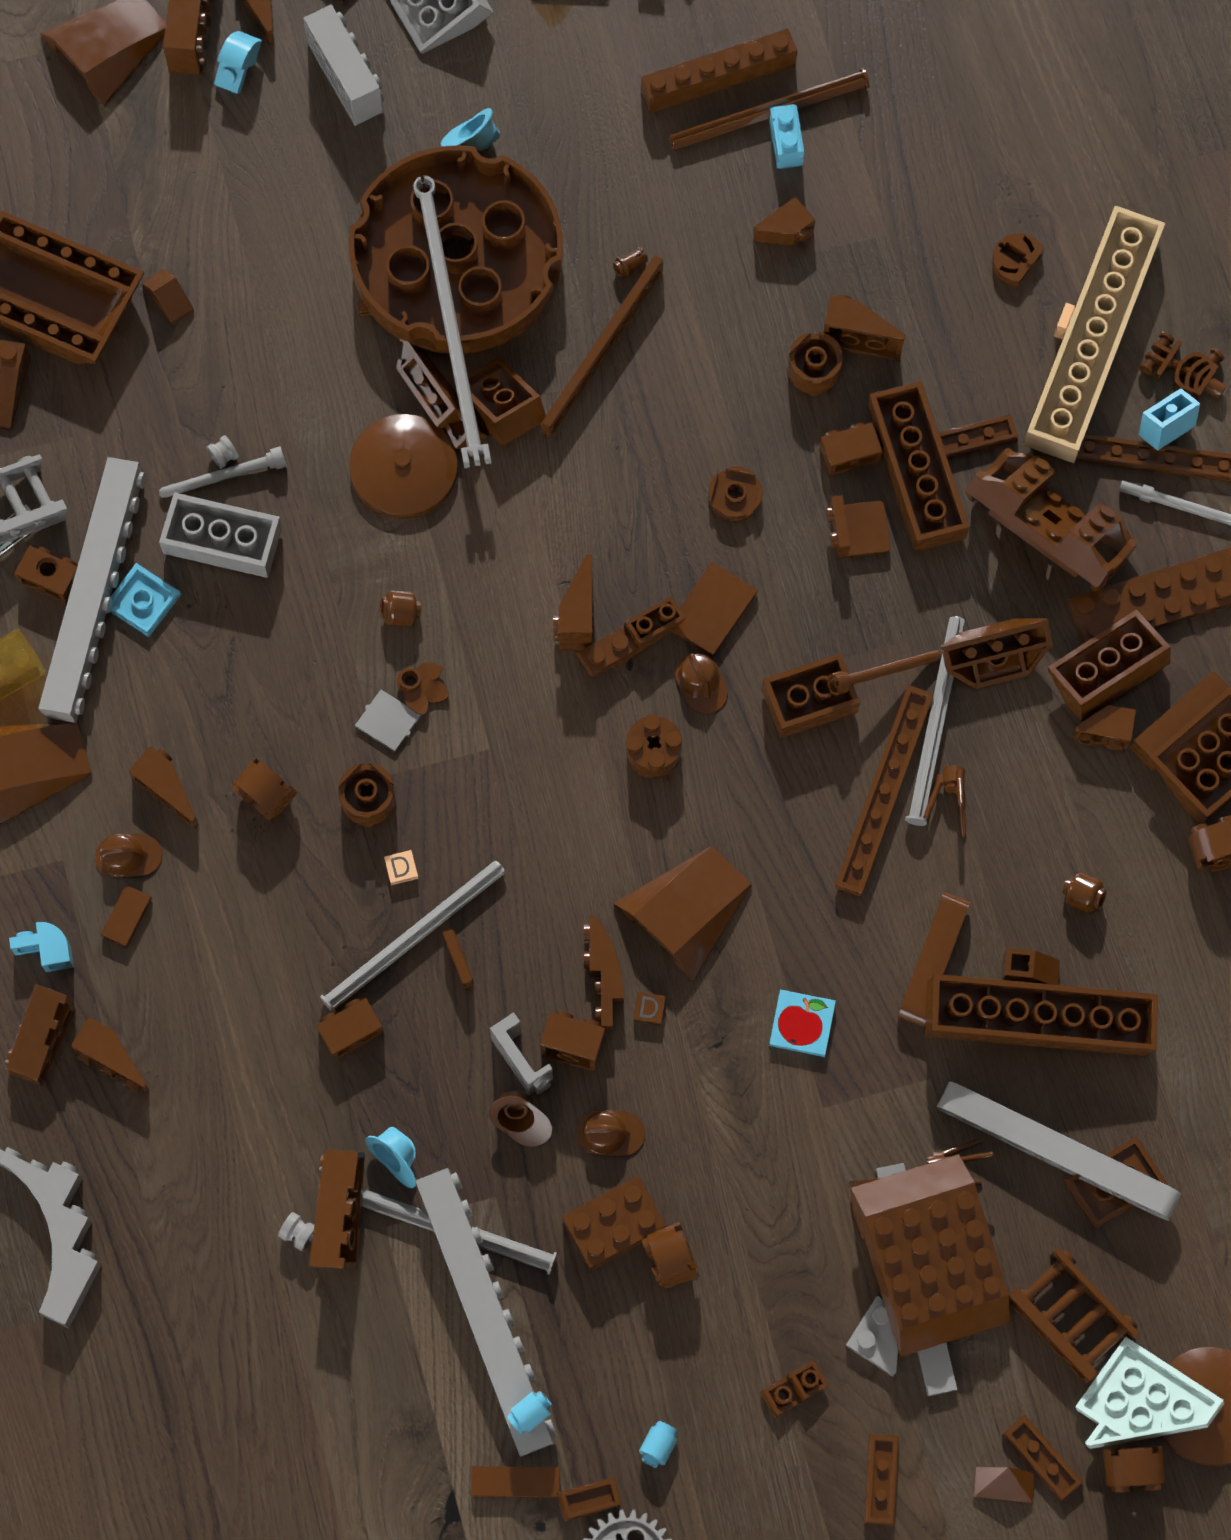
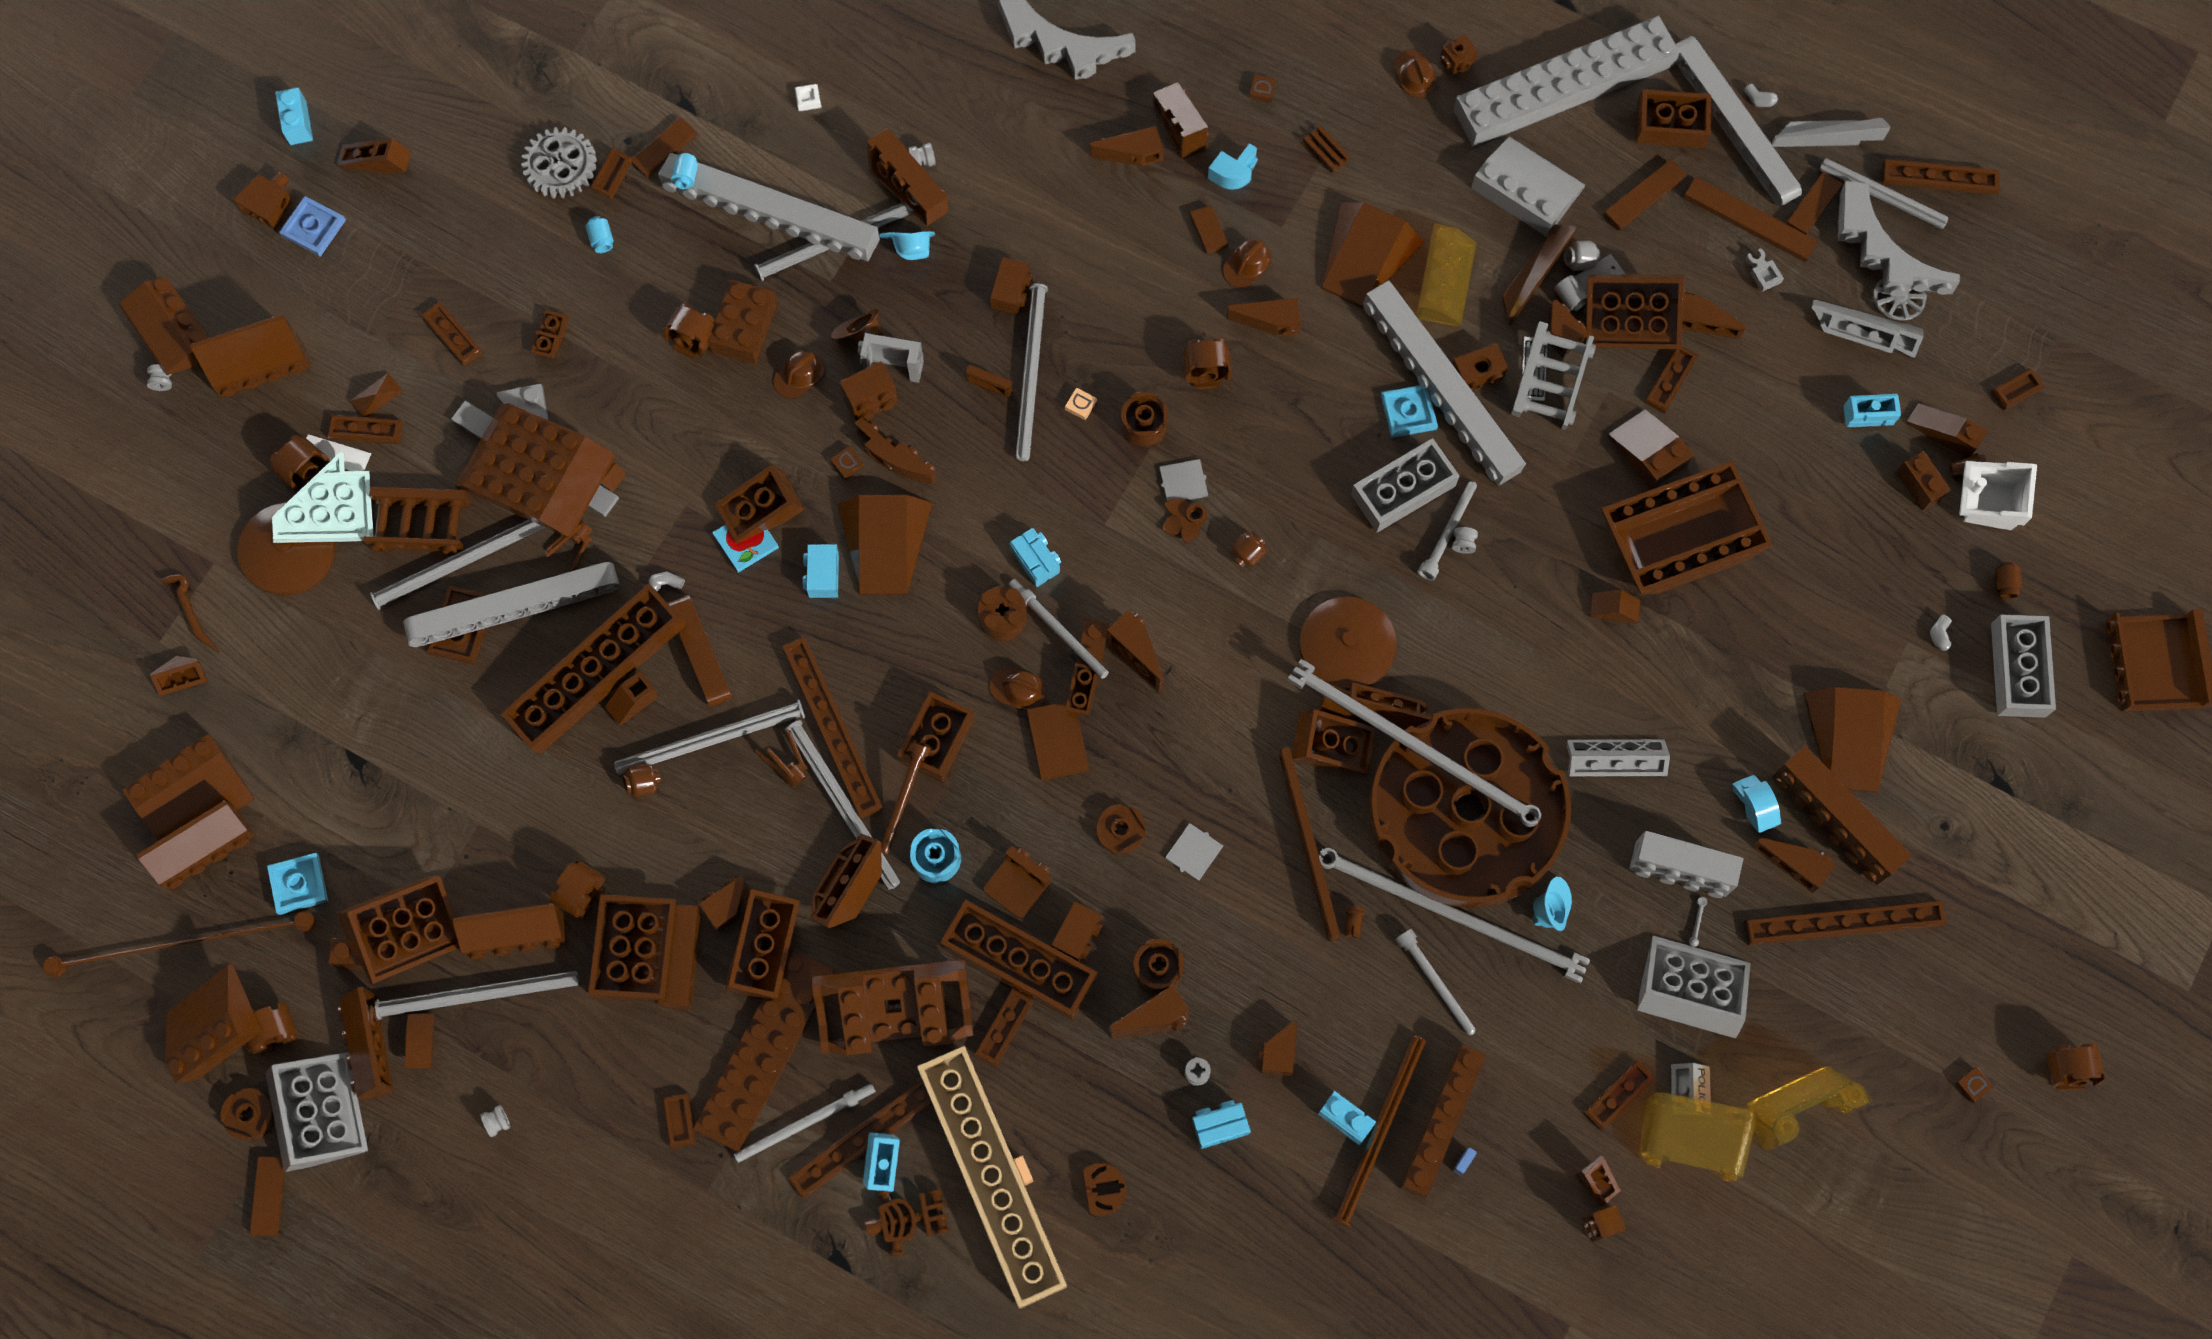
camera: 135 degrees right, 0 degrees up
(304, 183) = (1618, 760): none -> light grey fence
(335, 1402) = (808, 97): none -> white tile
(395, 21) = (1701, 902): none -> light grey hinge
(505, 89) = (1570, 965): none -> light grey hinge
(577, 770) = (1035, 557): none -> medium azure brick
(605, 212) = (1408, 942): none -> light grey piece
(618, 742) = (1030, 600): none -> light grey bar
(695, 427) = (1194, 852): none -> light grey piece
(732, 33) = (1464, 1161): none -> medium blue tile
(763, 1036) = (759, 504): none -> reddish brown slope
(766, 928) = (822, 571): none -> medium azure brick
(865, 275) = (1194, 1074): none -> light grey wheel
(884, 217) = (1221, 1124): none -> medium azure brick
(904, 1054) = (668, 578): none -> light grey arm
(918, 600) = (940, 843): none -> medium azure brick
(994, 877) = (711, 737): none -> light grey axle
(1081, 1246) = (454, 563): none -> light grey axle
(1087, 1461) = (353, 458): none -> white sticker

